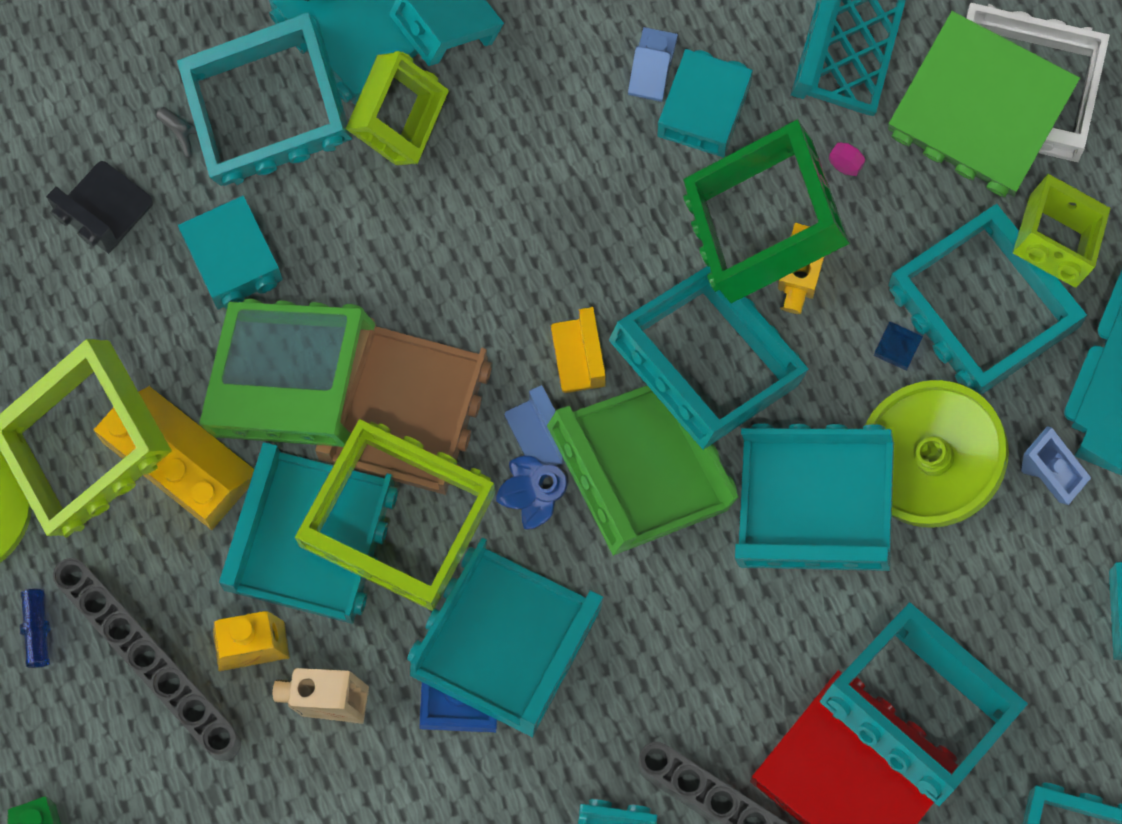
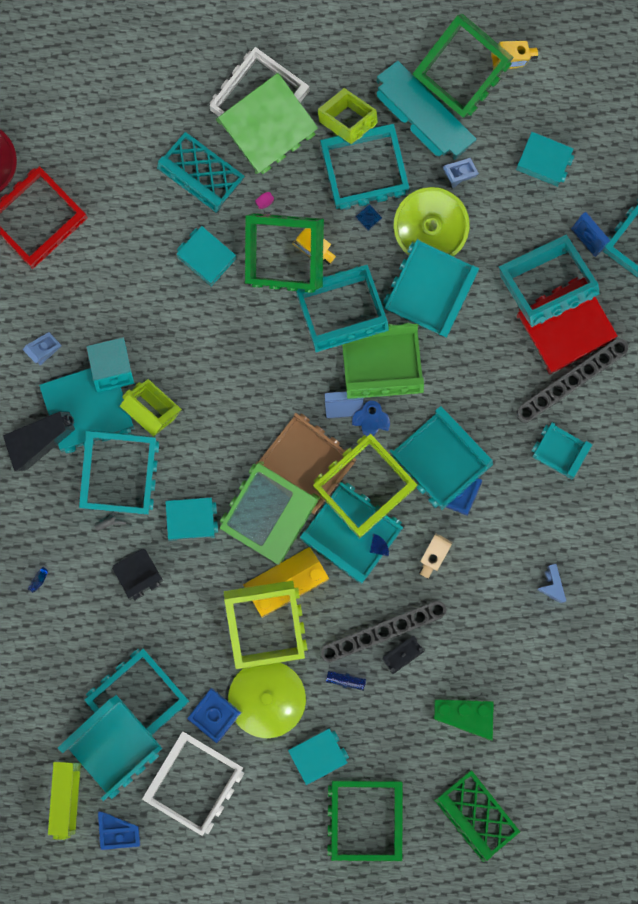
camera: 75 degrees left, 10 degrees up
(37, 54) = (38, 580): none -> clear blue tile
(116, 710) = (402, 655): none -> black hinge
(249, 640) = (394, 581): yellow torso -> none
(302, 590) = (379, 546): none -> clear blue tile
(578, 353) = (311, 369): yellow panel -> none
(652, 64) = (172, 273): medium blue slope -> none
(1048, 748) = (590, 234): none -> blue plate

